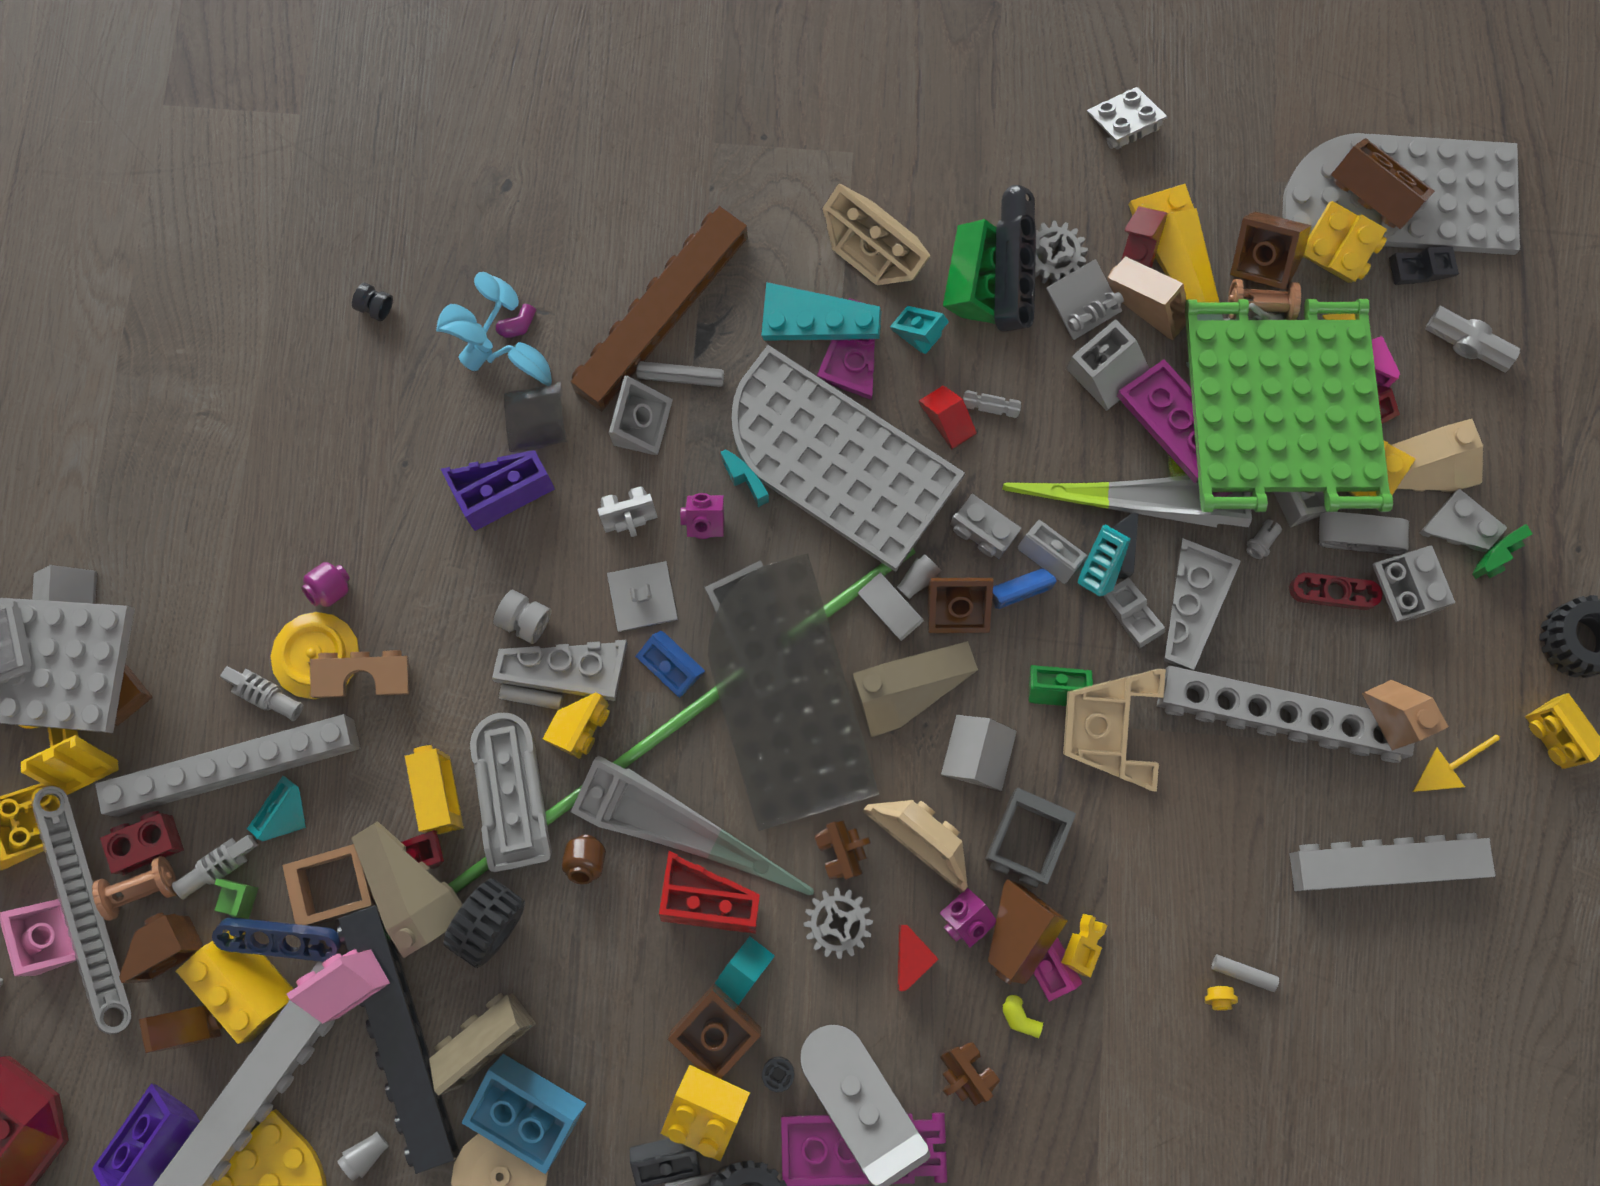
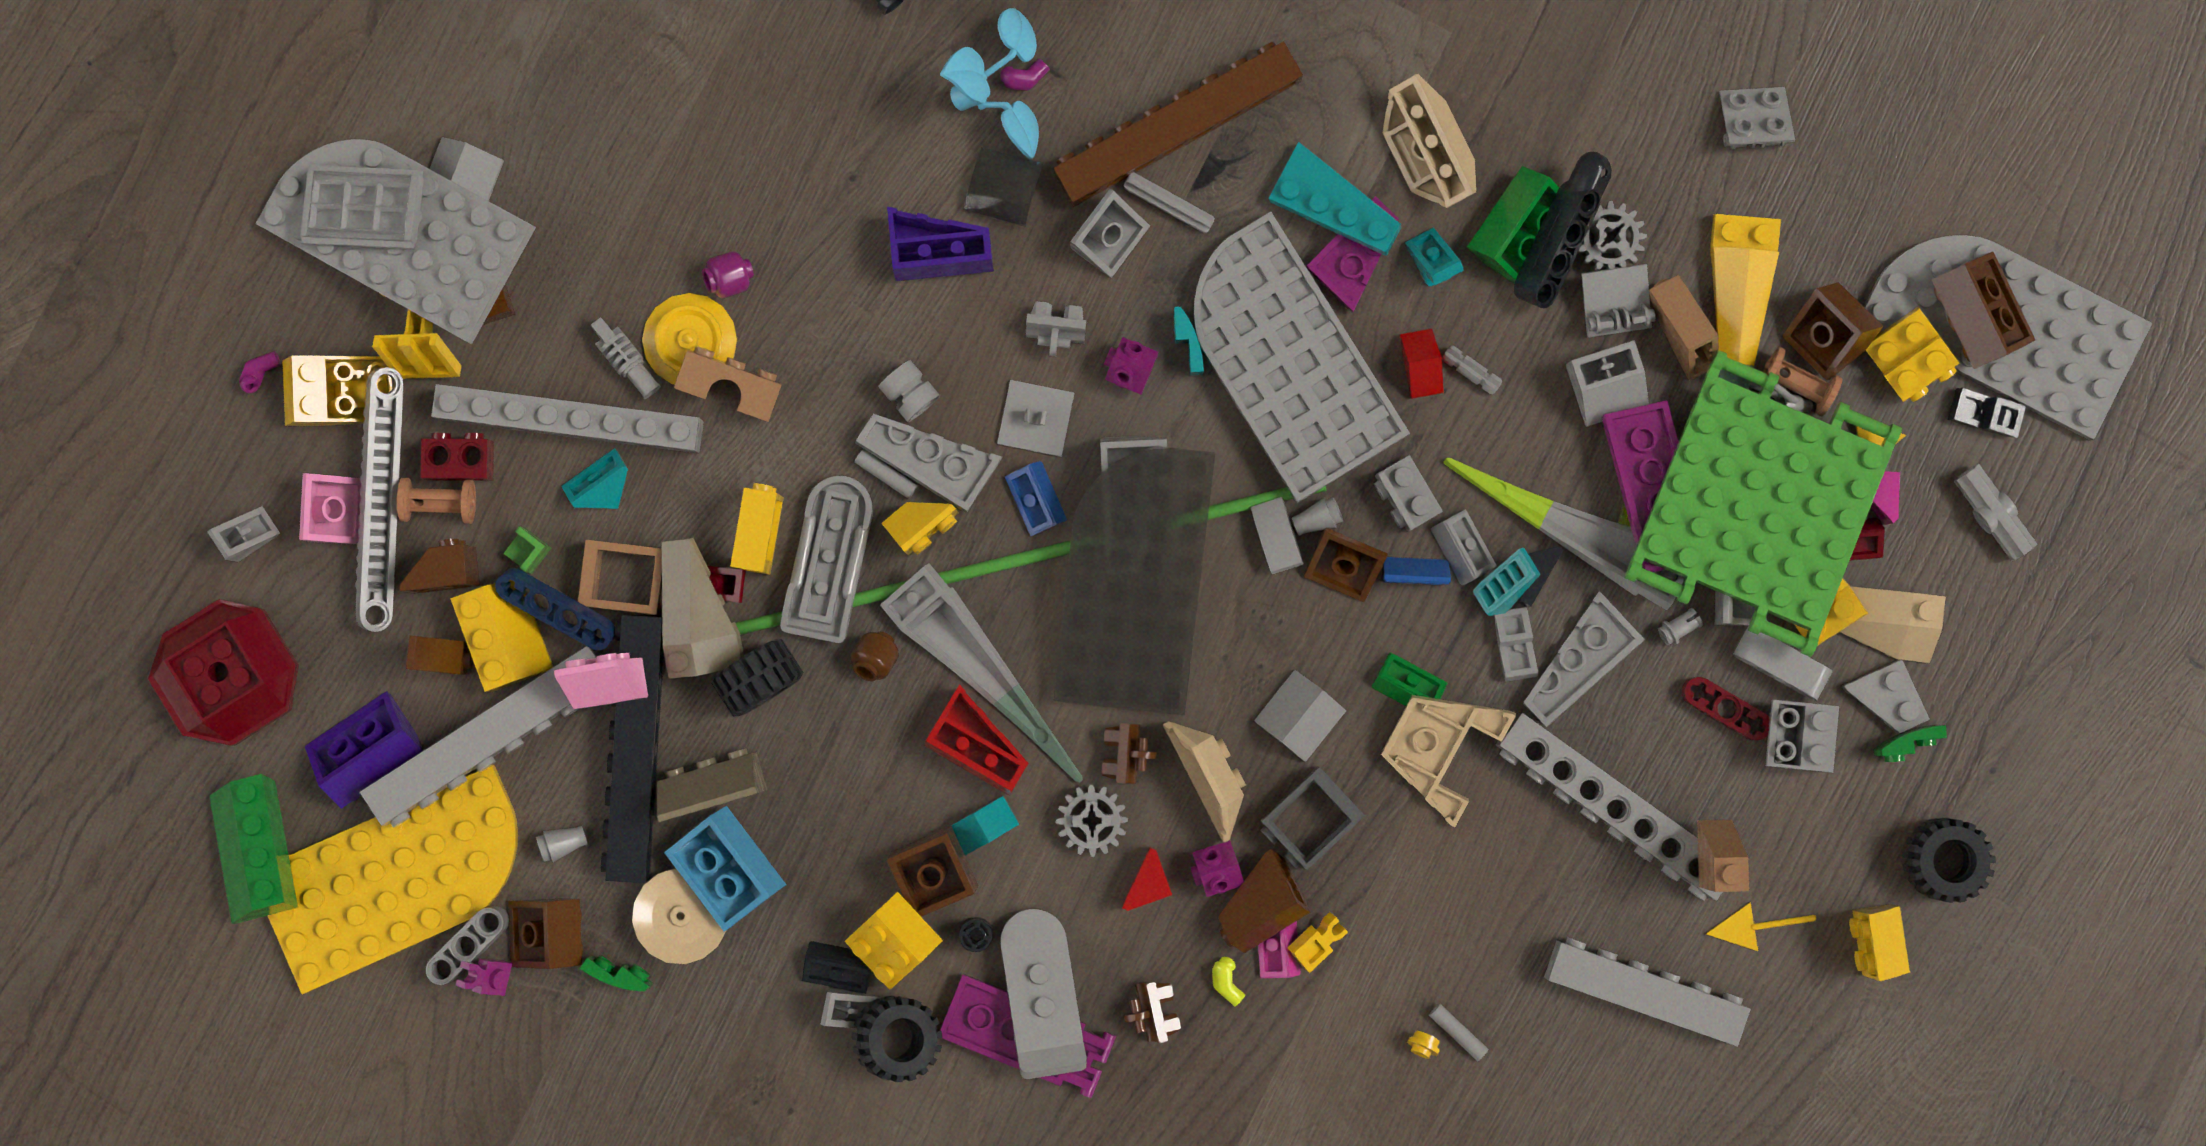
camera: 20 degrees right, 10 degrees up
(215, 865) = (519, 510): light grey hinge -> none
(905, 687) = (1256, 622): dark tan wedge -> none
(1144, 235) = (1708, 260): slope -> none

